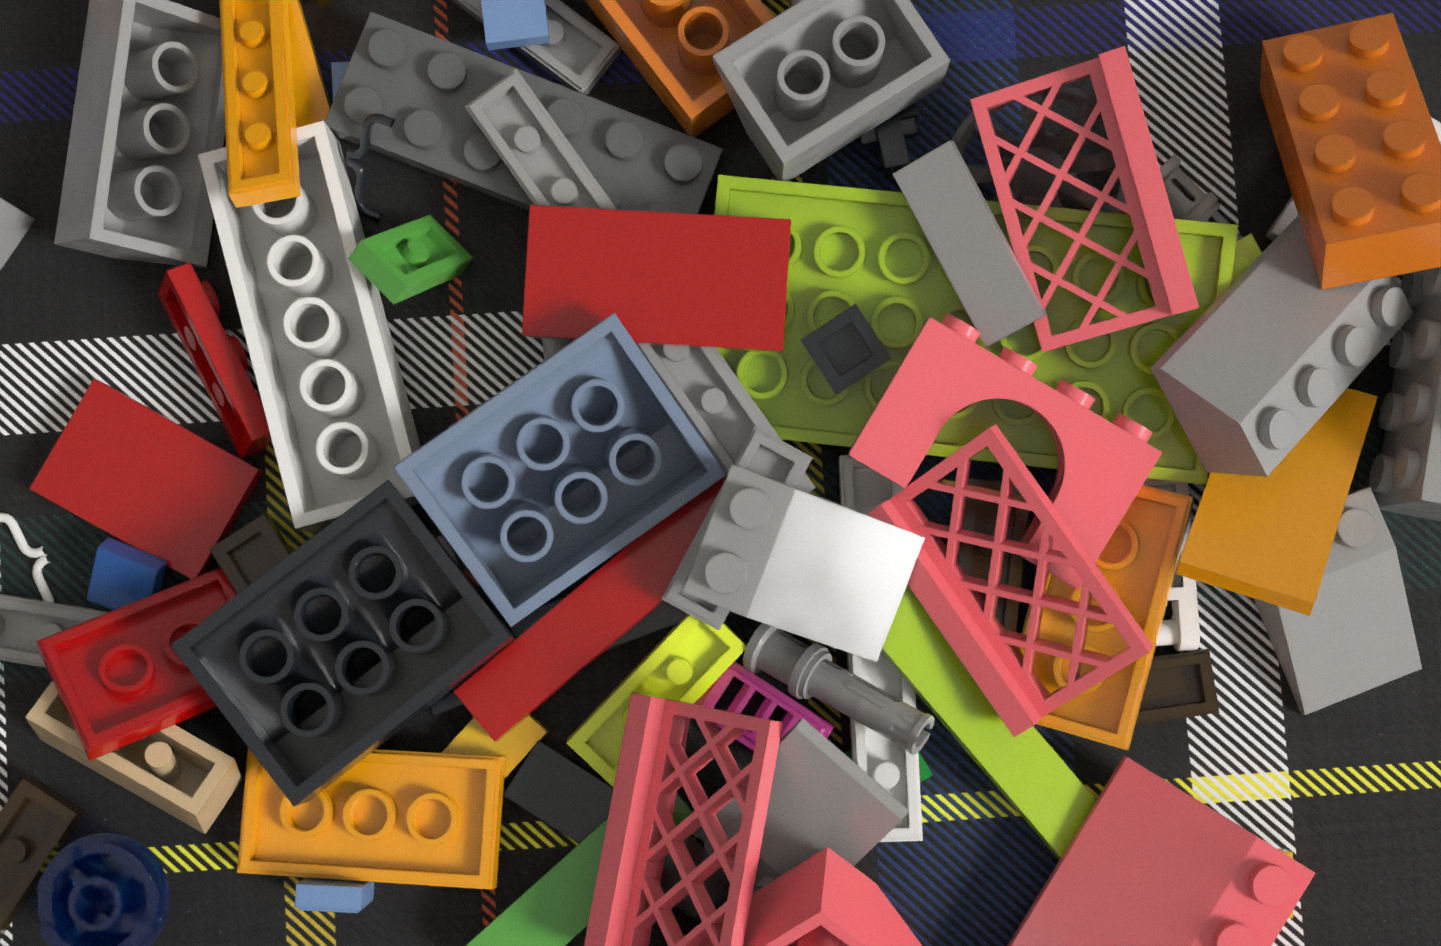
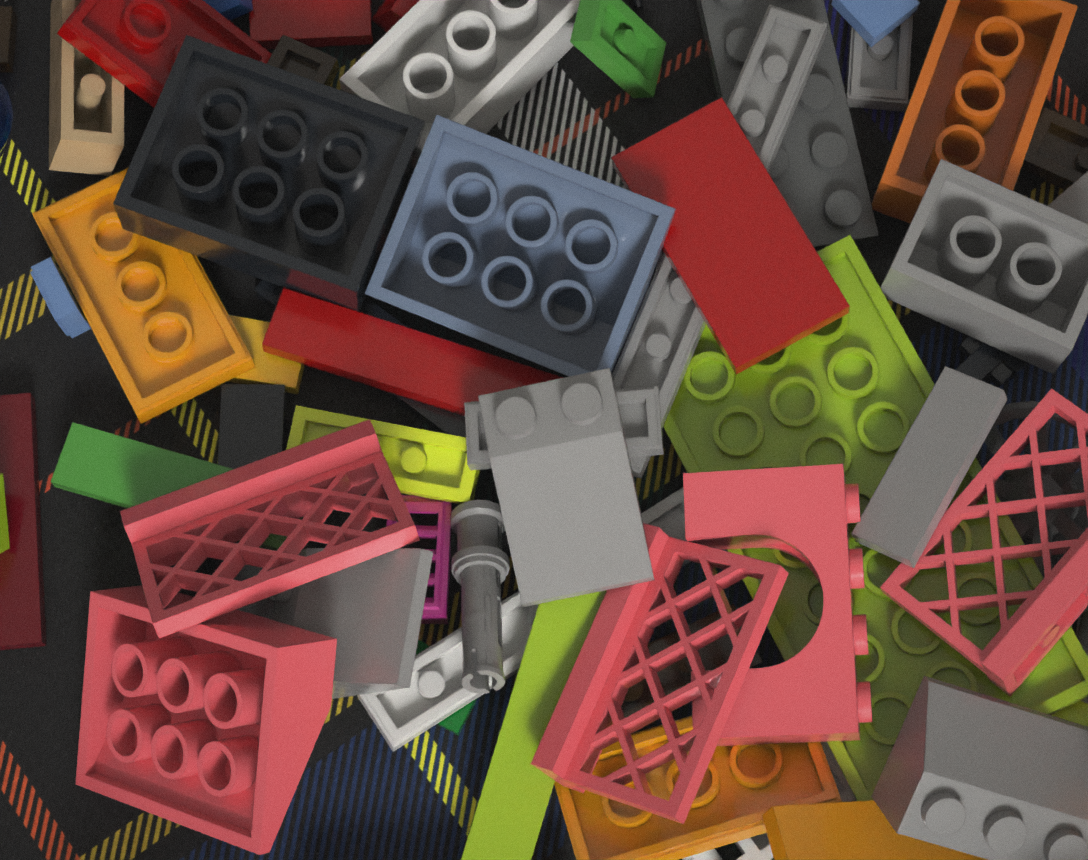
camera: 60 degrees right, 10 degrees down
(845, 349) = (772, 423): black plate -> none

